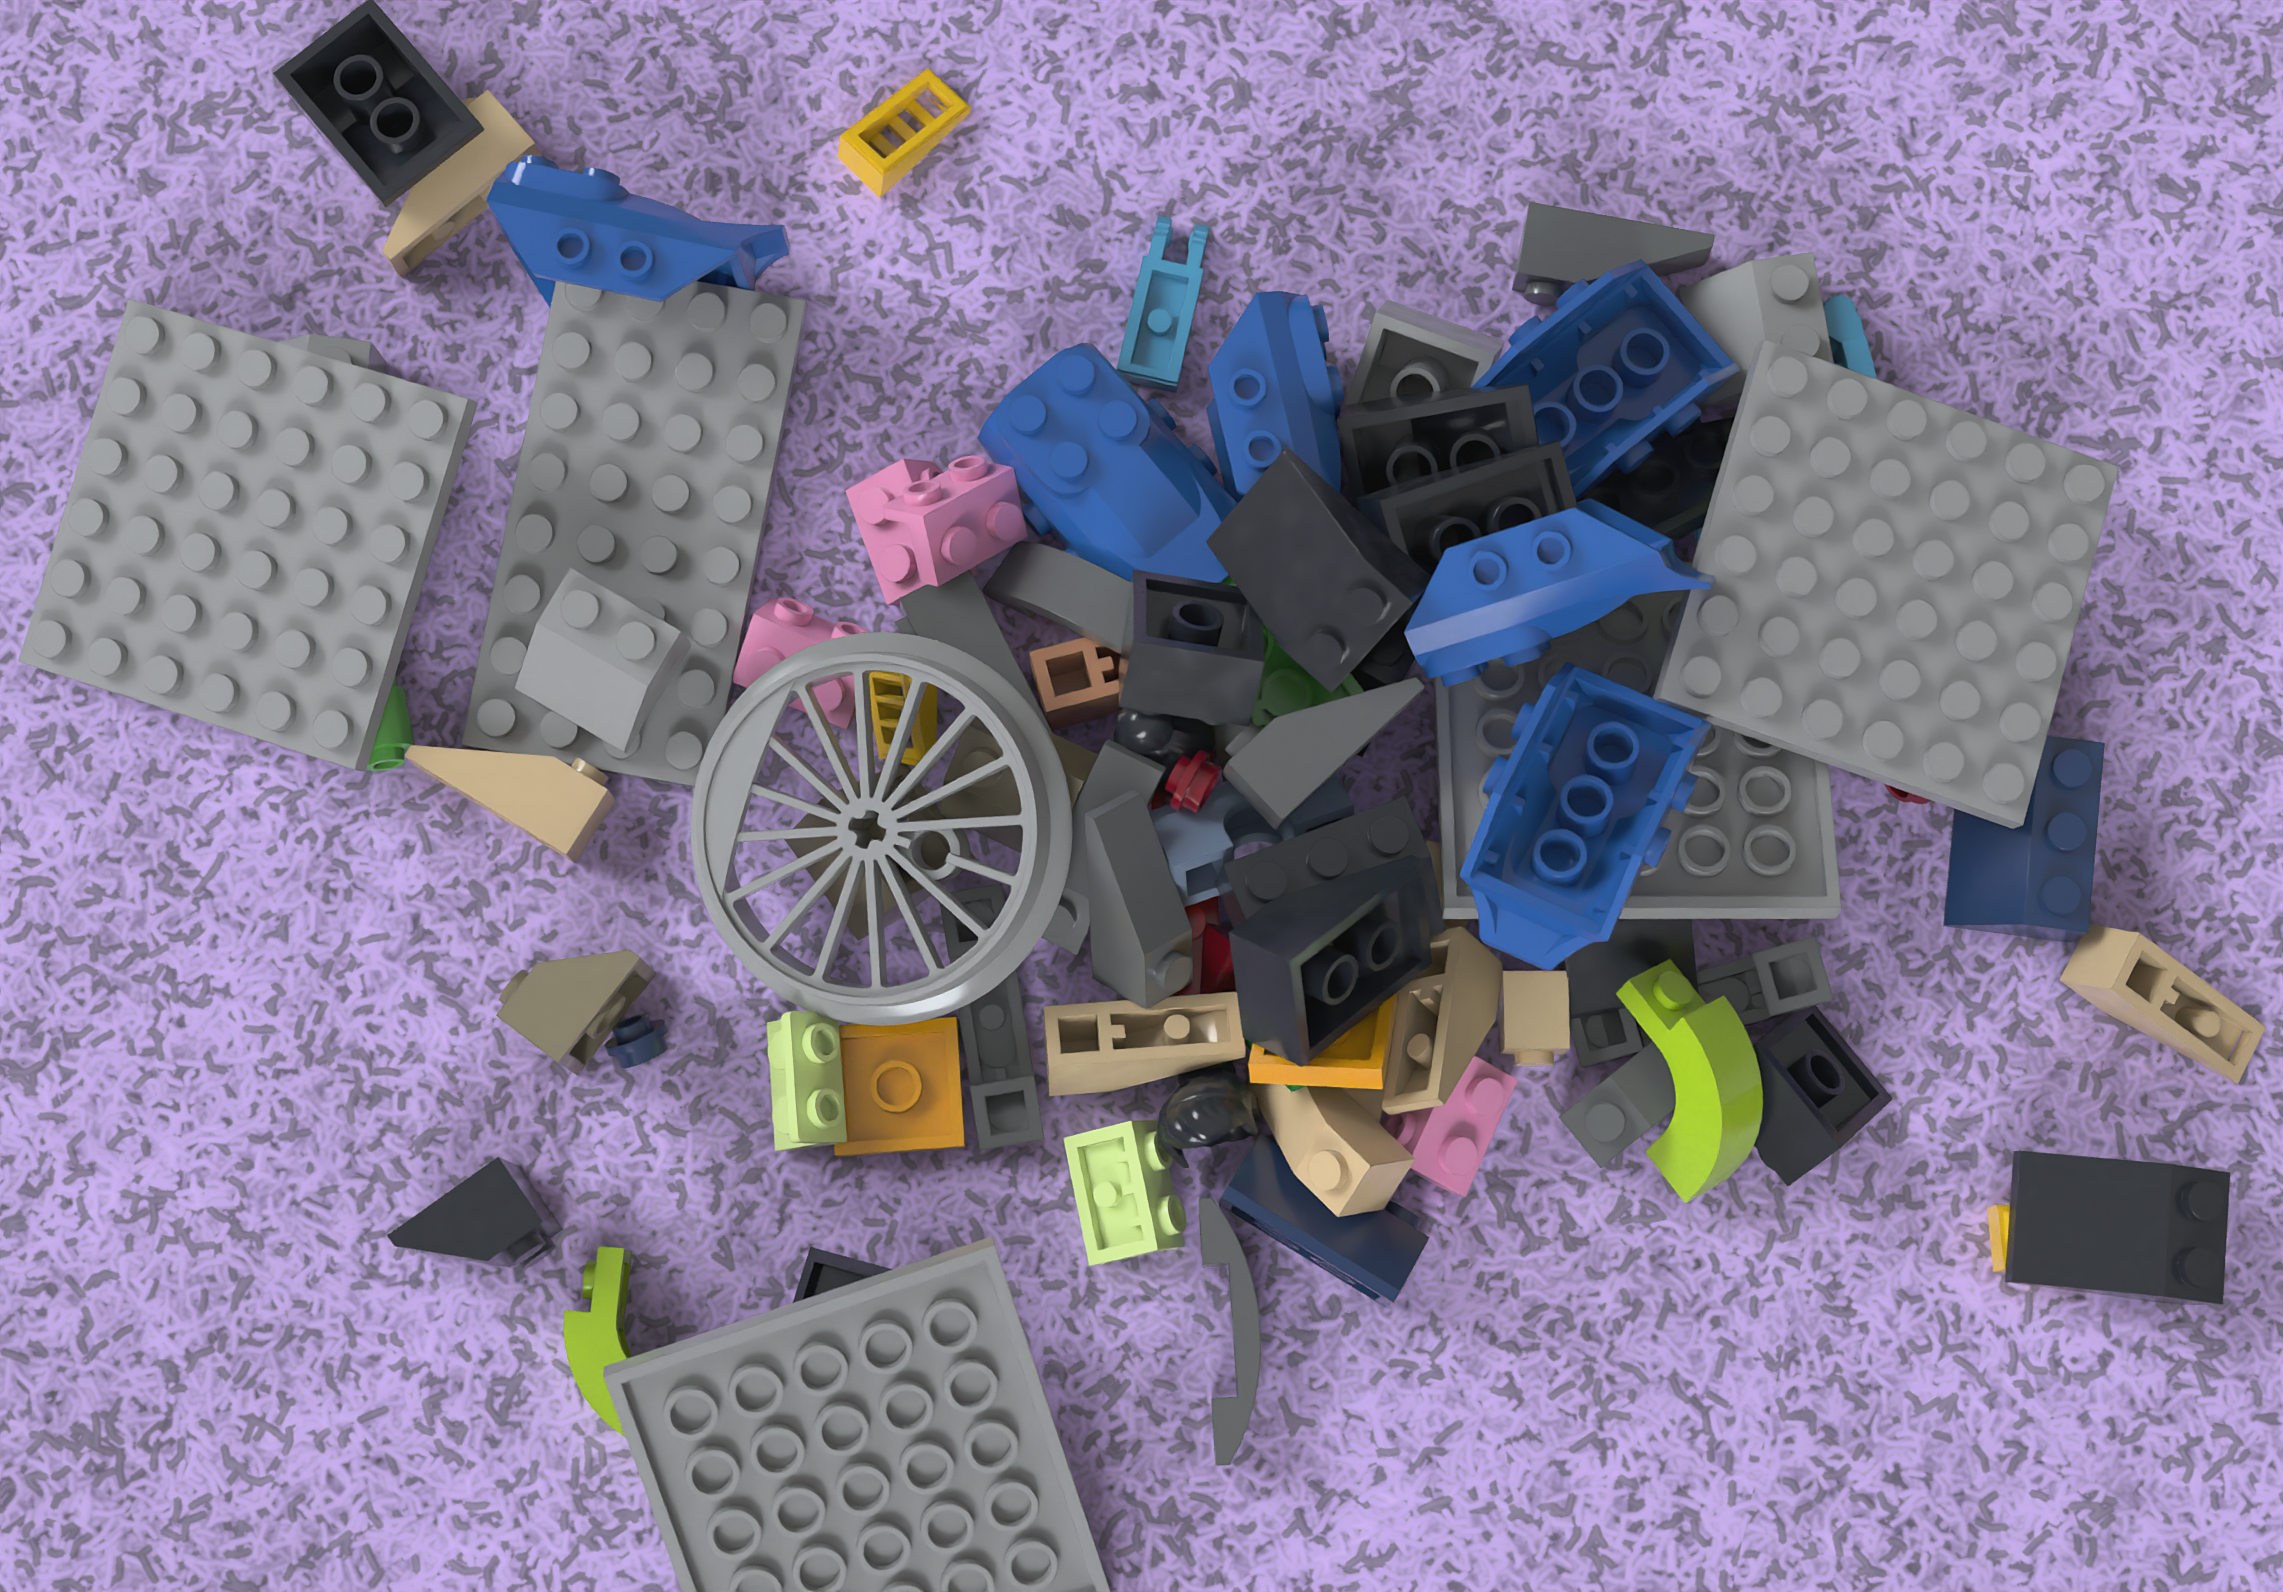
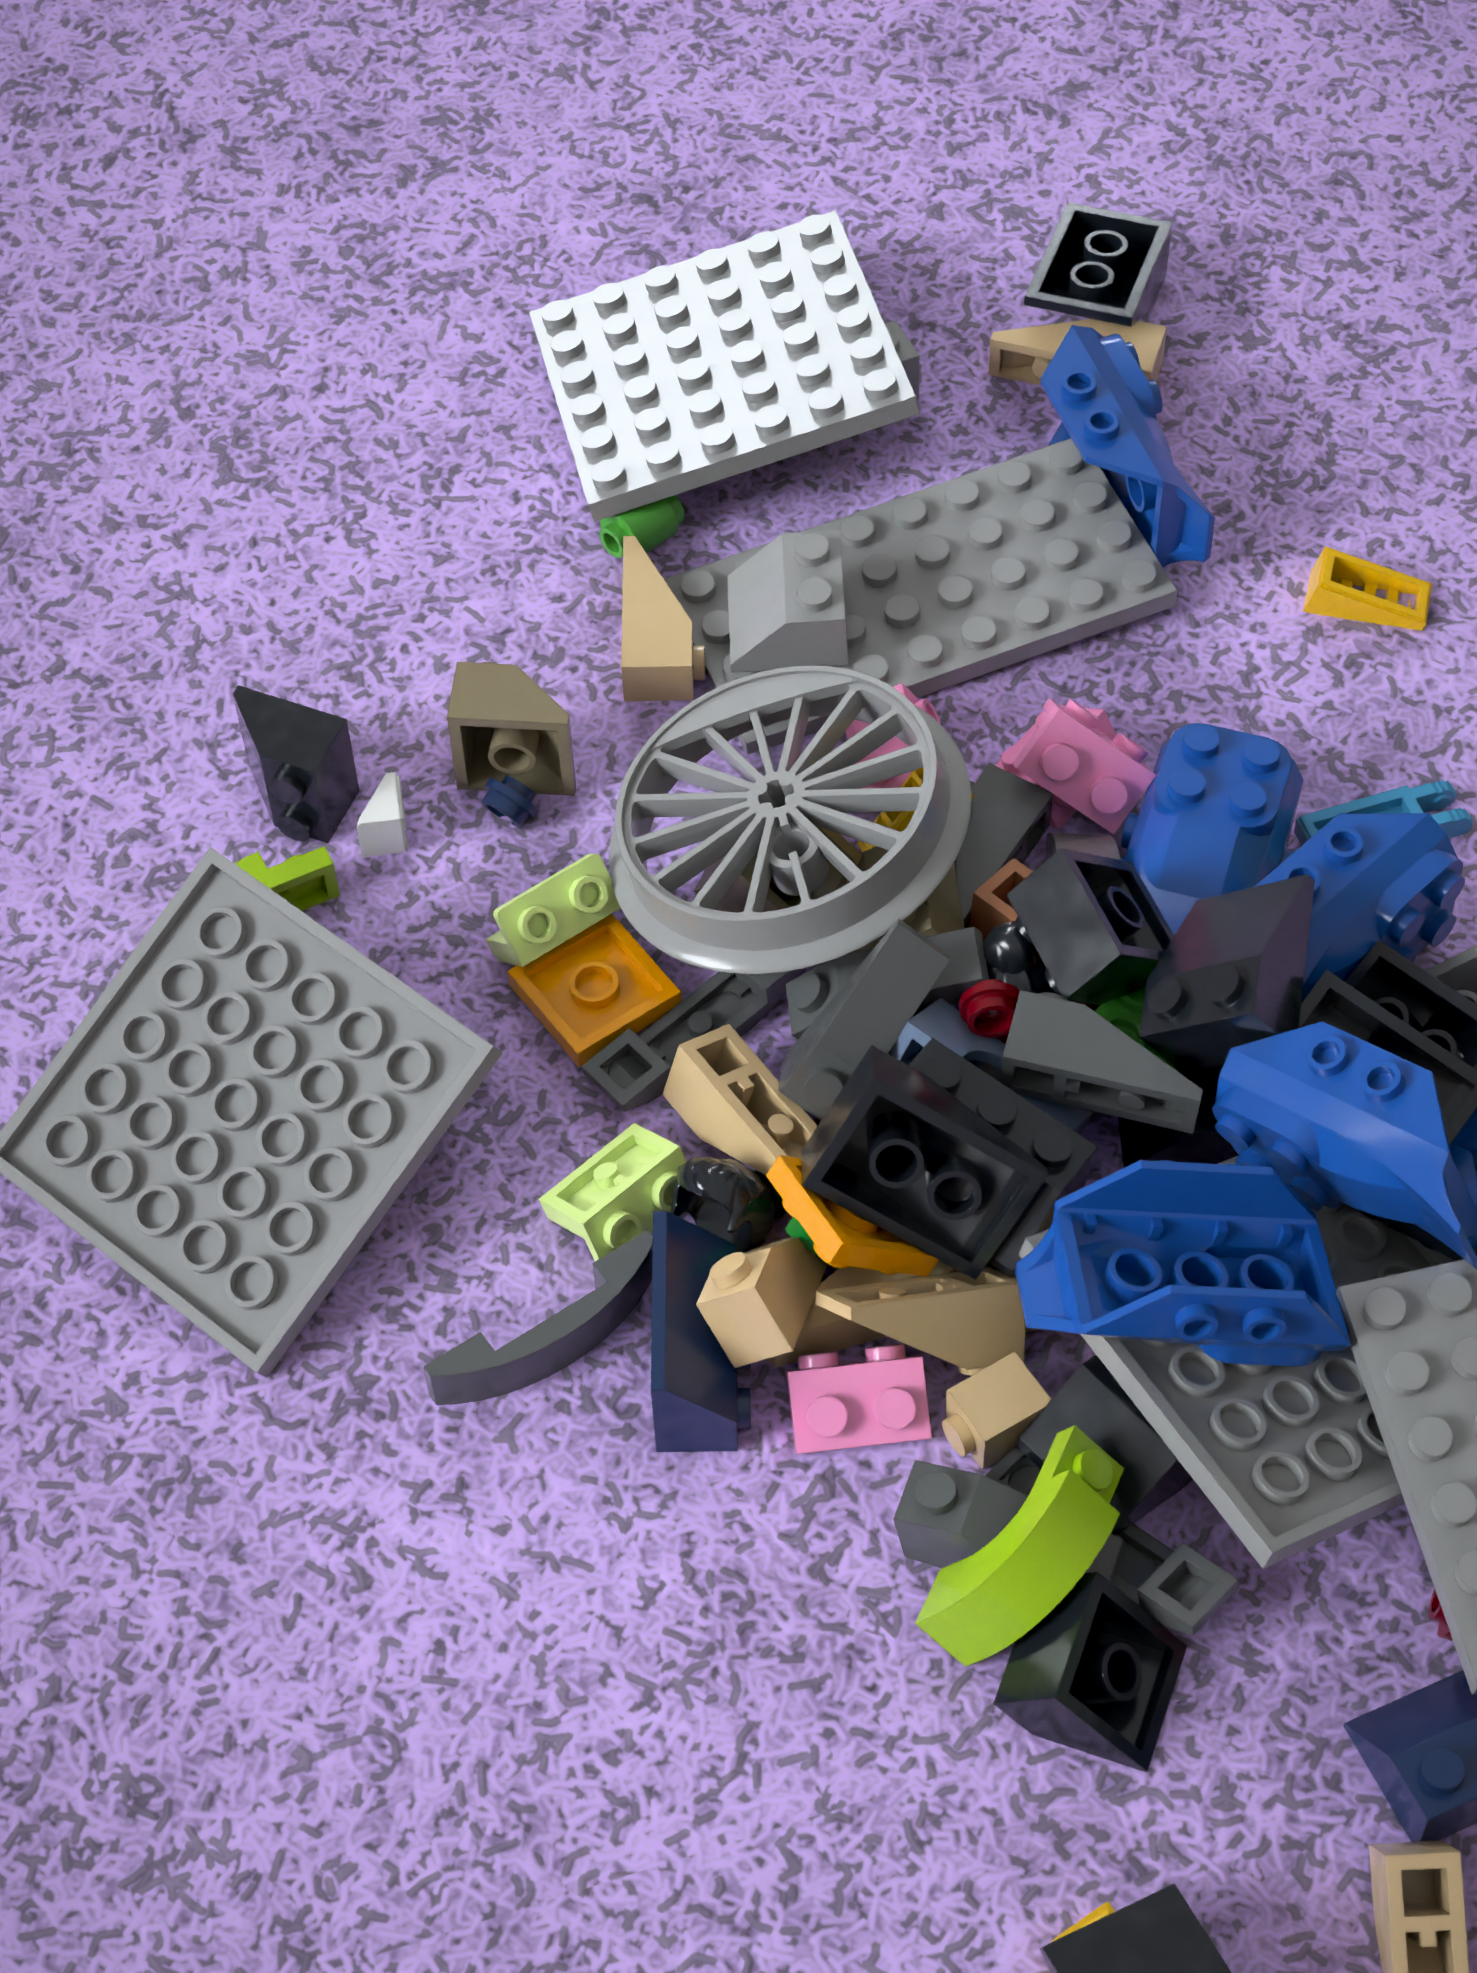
camera: 60 degrees right, 25 degrees down
(587, 1165) = (383, 821): none -> white slope

